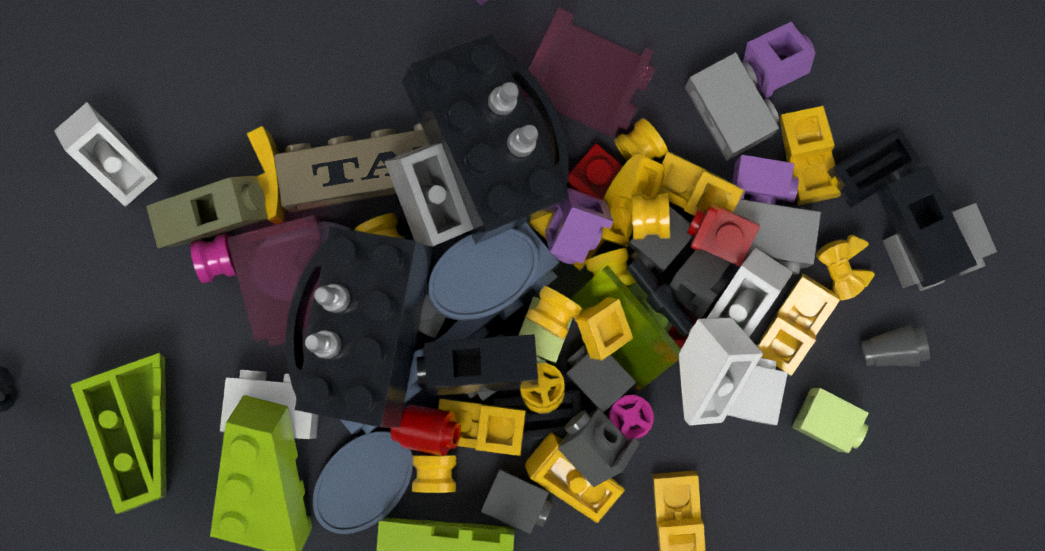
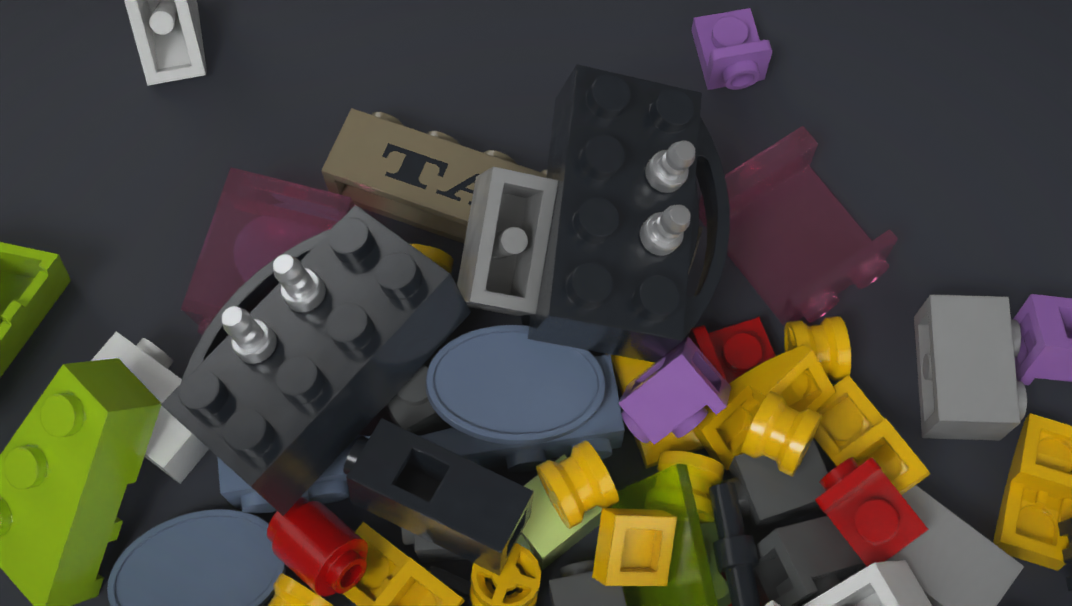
camera: 30 degrees right, 15 degrees down
(207, 211) = (231, 128): olive brick -> none
(212, 258) = (196, 189): dark pink wheel -> none
(268, 181) = (319, 137): yellow slope -> none
(765, 180) = (967, 483): medium lavender brick -> none

